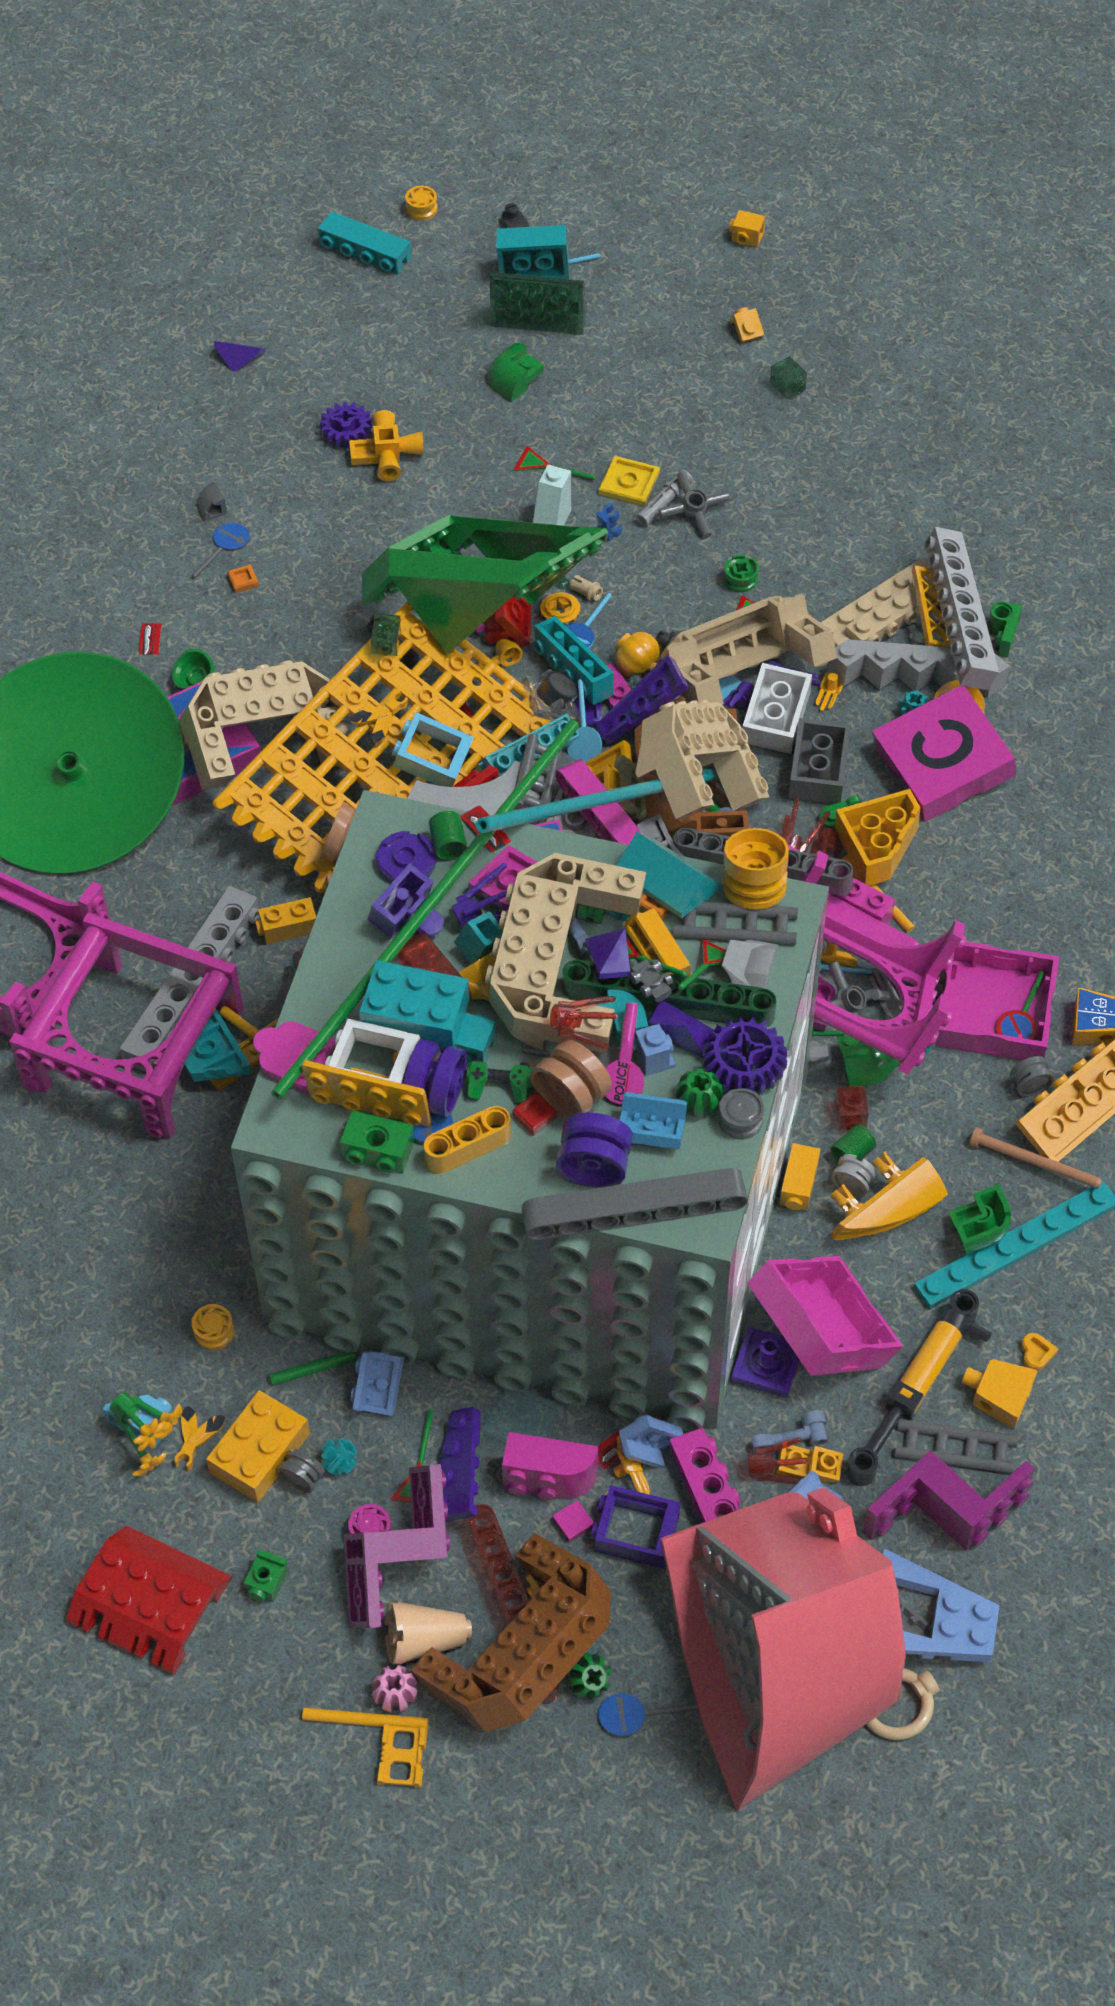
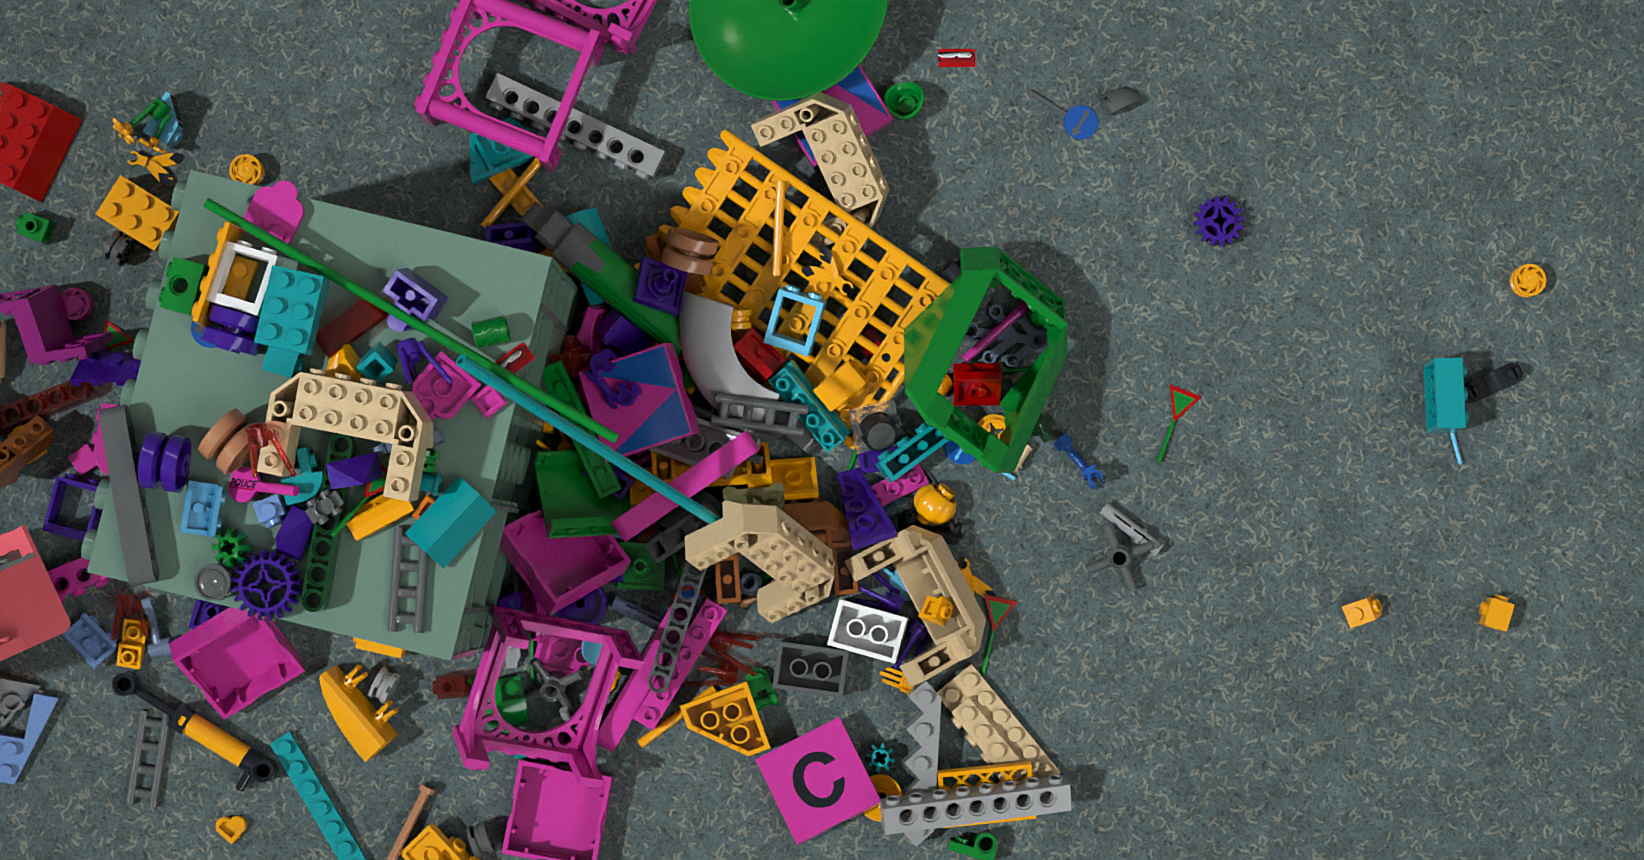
camera: 85 degrees right, 30 degrees up
(236, 354) = (1315, 110): dark purple slope -> none
(243, 578) = (1027, 137): orange tile -> none
(286, 921) = (636, 203): light orange brick -> none
(328, 757) = (778, 228): none -> light orange bar
(338, 1456) = (132, 277): teal gear -> none
(364, 243) = (1466, 225): teal brick -> none
(385, 446) = (1187, 260): light orange brick -> none
(386, 634) = (911, 278): clear green brick -> none
(405, 848) = (474, 297): dark purple tile -> none
(460, 1152) = (178, 350): light orange beam -> none
(479, 1074) = (248, 401): green piece -> none
(505, 717) = (841, 385): none -> light orange brick
(513, 371) = (1292, 380): green brick -> none
(528, 842) = (488, 401): none -> dark pink tile
(534, 1113) = (216, 410): red tile -> none
(537, 303) = (1373, 402): clear green slope -> none
(553, 496) = (1106, 421): light aqua slope -> none
(589, 742) = (836, 457): medium azure piece -> none
(629, 480) = (1156, 495): yellow tile -> none
(711, 956) = (372, 562): green piece -> none
(741, 573) = (1037, 601): green wheel -> none
(750, 962) = (361, 591): light grey slope -> none
(753, 637) = (936, 610): none -> light orange bracket
(755, 868) = (461, 595): light orange wheel -> none
(788, 377) = (1288, 651): clear green brick -> none
(856, 1141) = (414, 686): green piece -> none
(948, 1501) = (88, 750): magenta bracket -> none
(983, 1220) = (336, 788): green brick -> none
(1001, 1389) = (192, 797): light orange torso -> none
(1020, 1022) = (537, 830): piece -> none

